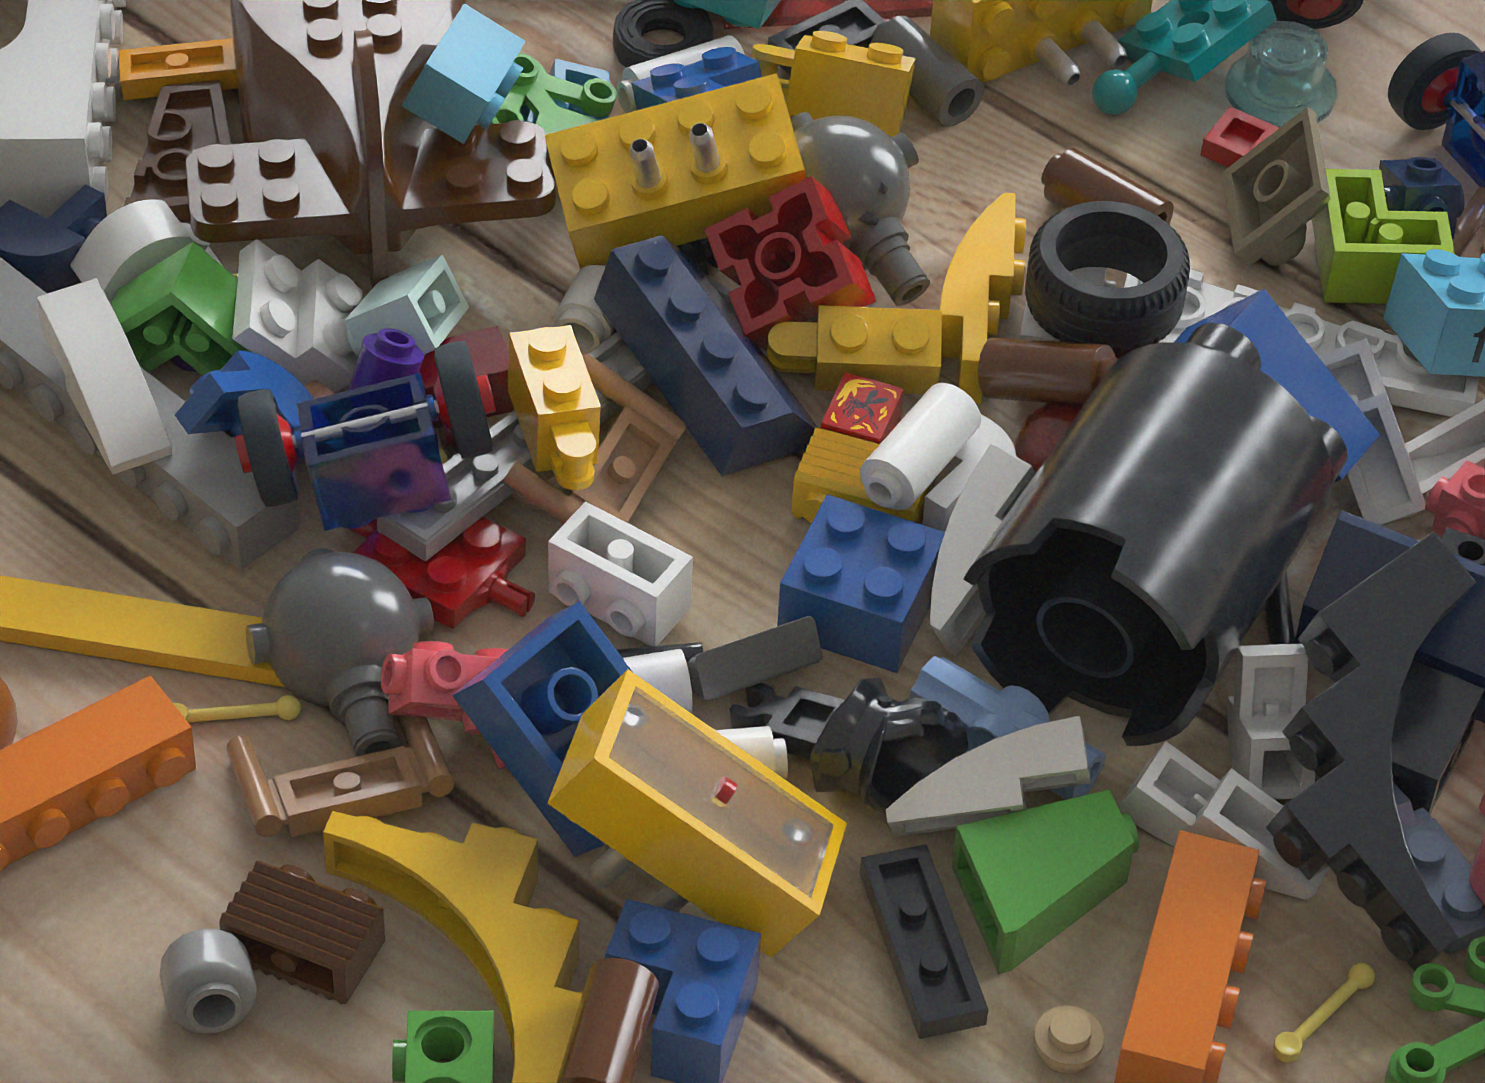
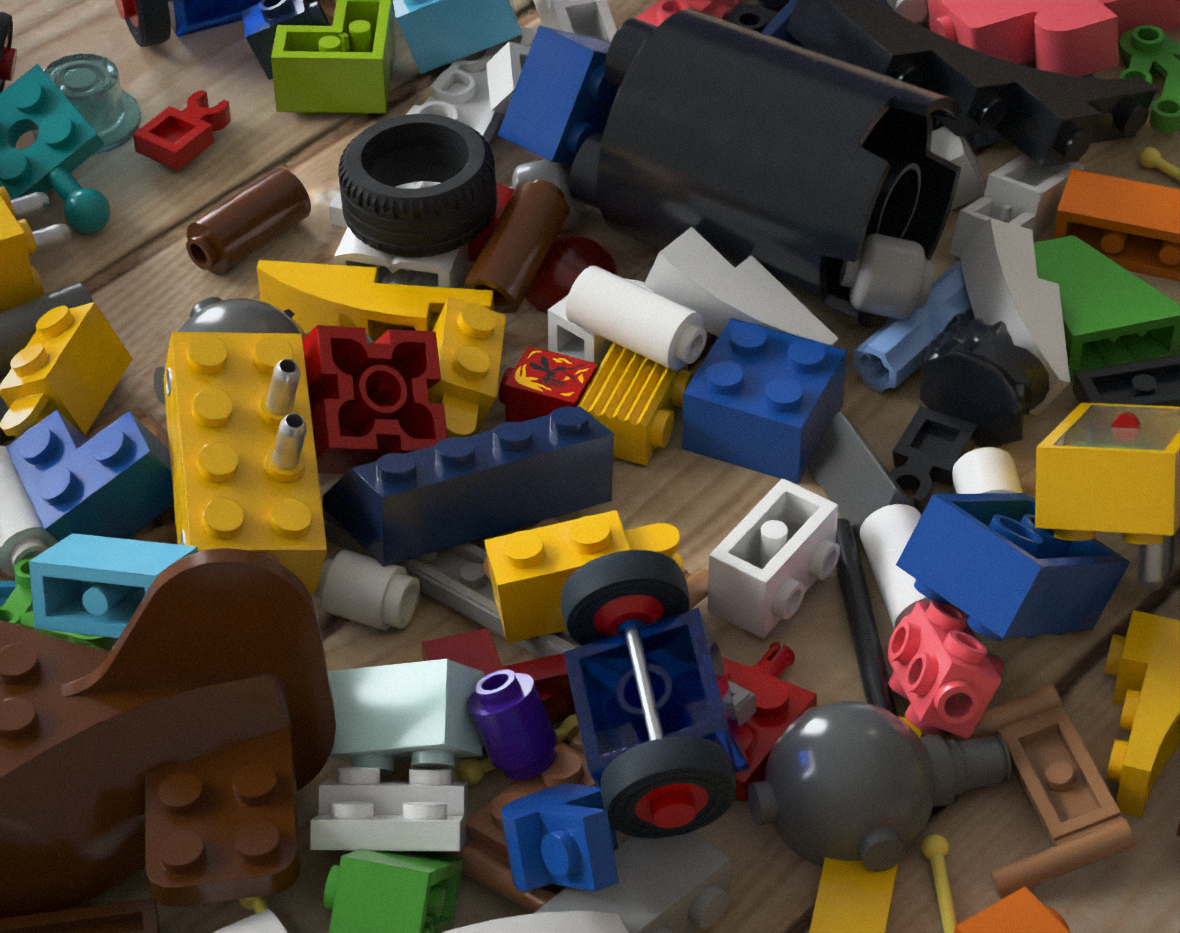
camera: 85 degrees left, 5 degrees down
(1001, 644) = (888, 277): none -> light grey head
(1277, 192) = (278, 92): dark tan slope -> none

